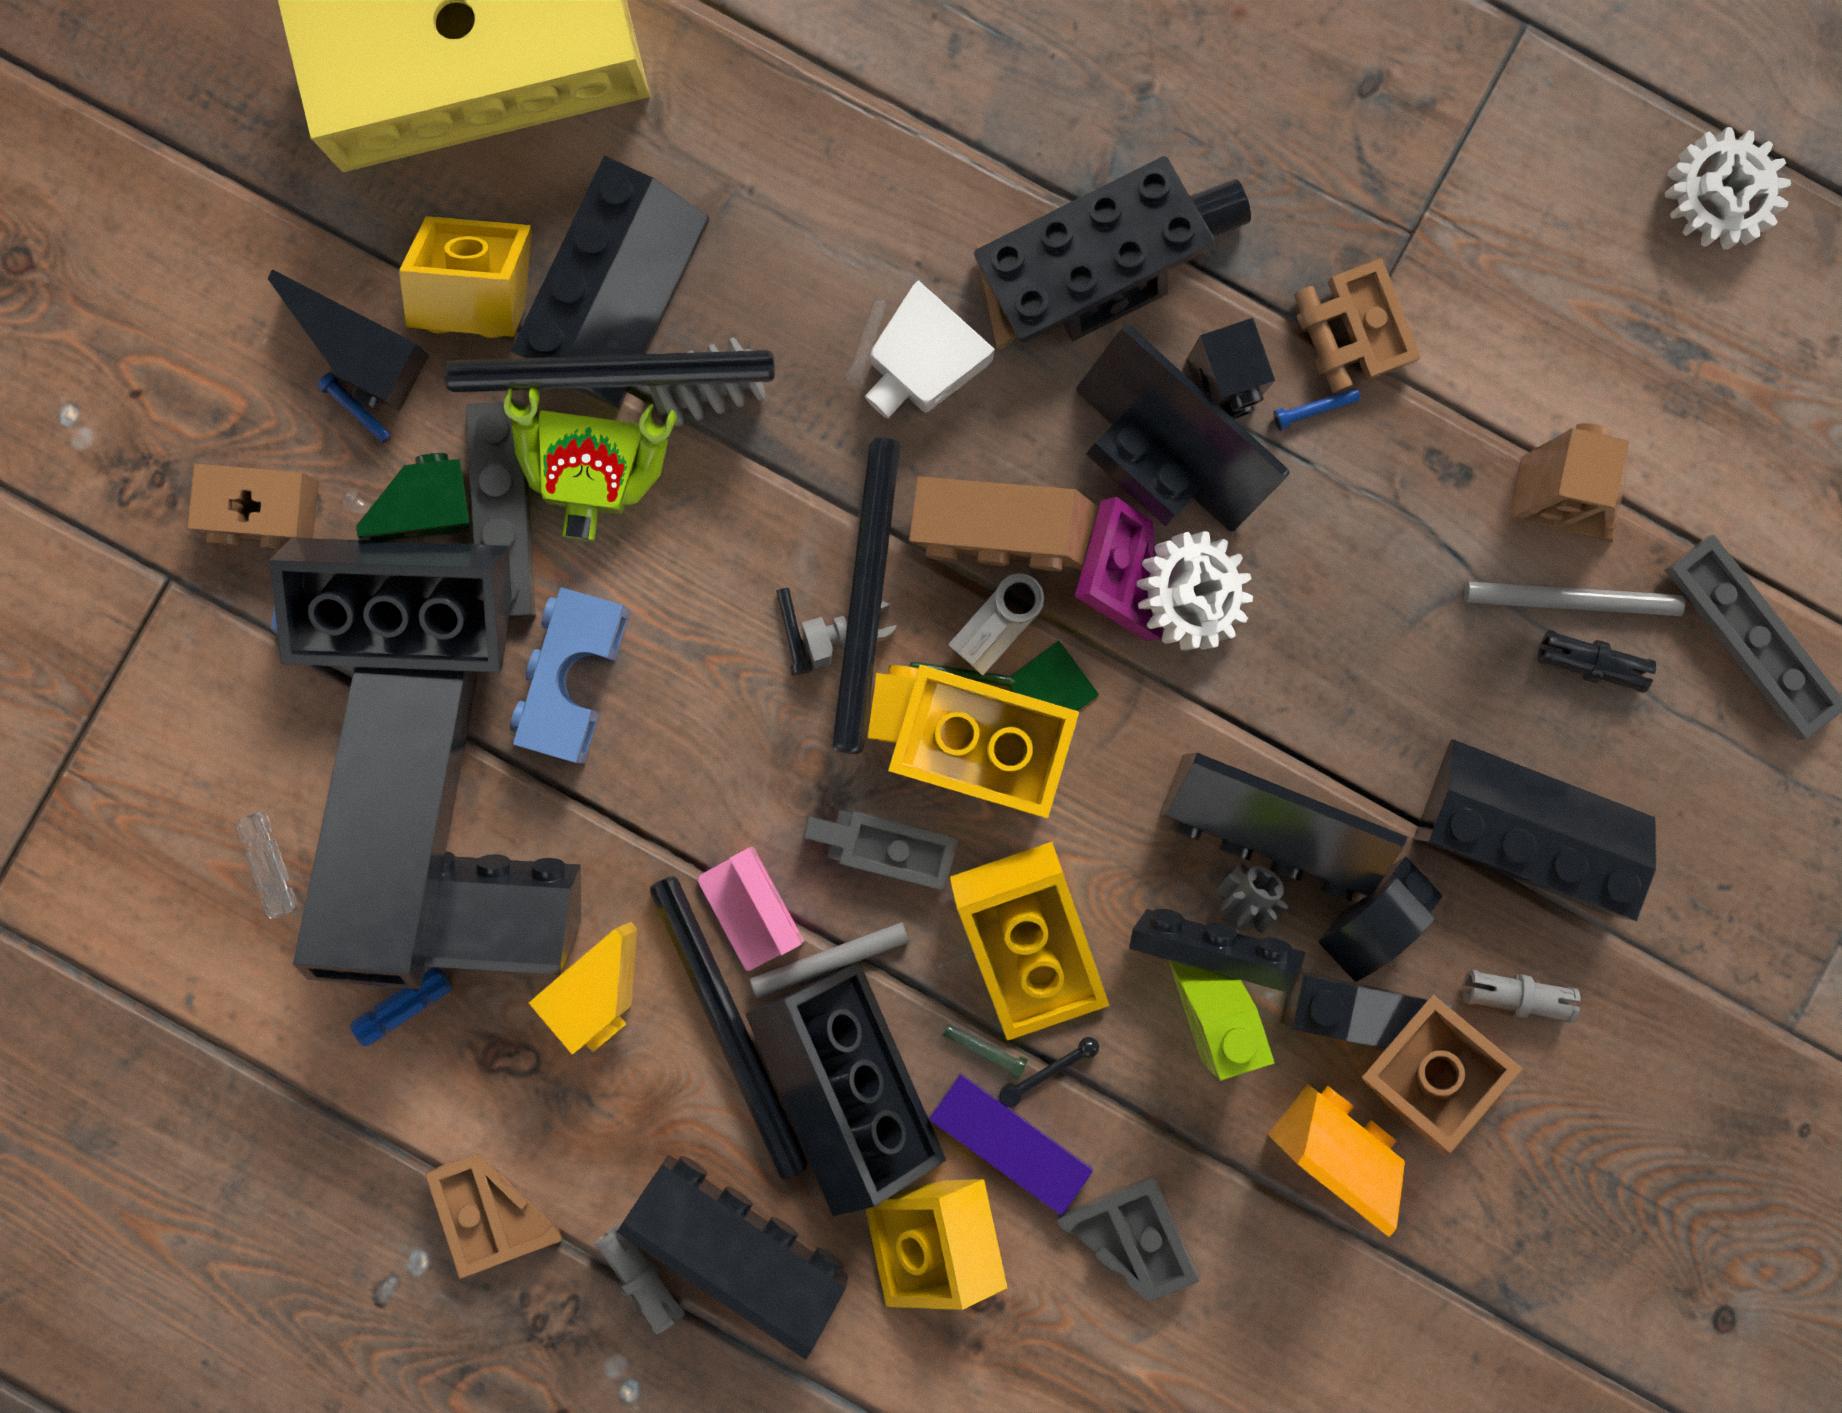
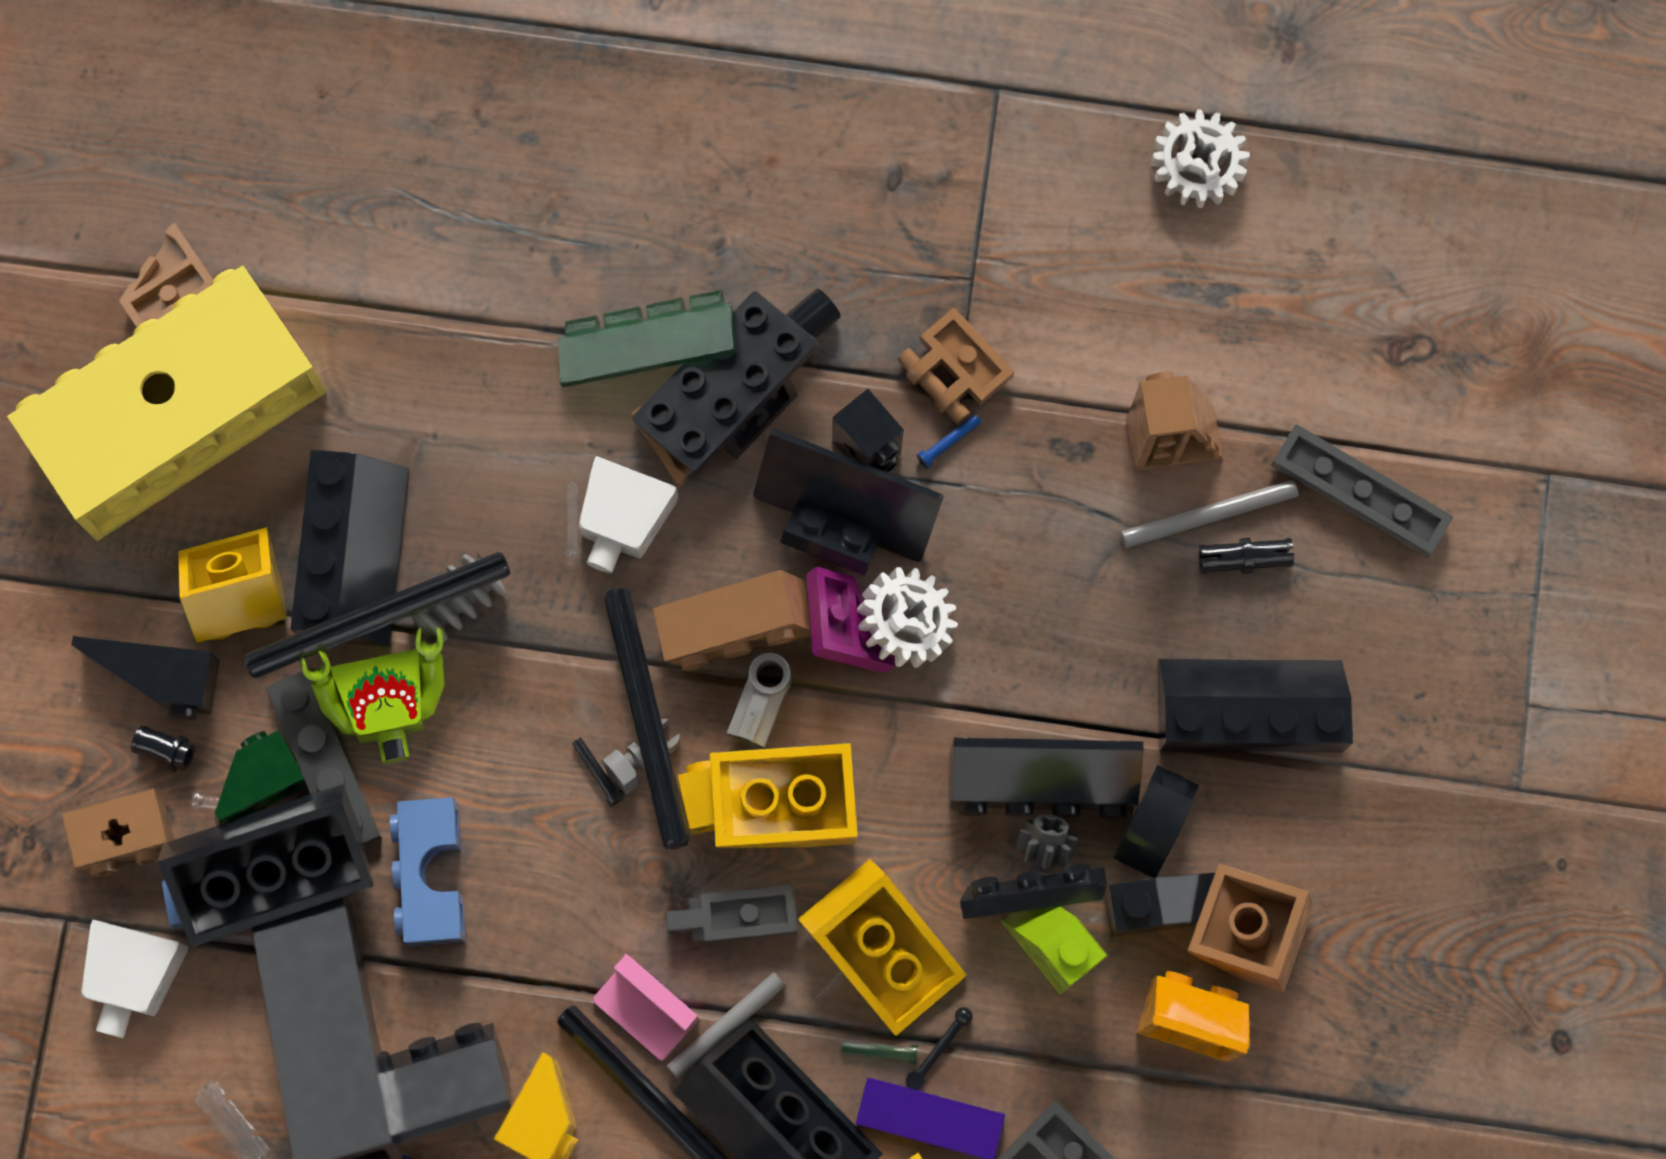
camera: 25 degrees left, 10 degrees down
(209, 662) = (128, 973): none -> white torso
(330, 384) = (147, 713): blue piece -> none
(342, 439) = (174, 752): none -> black pin
(1012, 171) = (638, 345): none -> clear green windscreen
(1047, 677) = (819, 727): dark green piece -> none
(1521, 996) = (1292, 841): light grey pin -> none

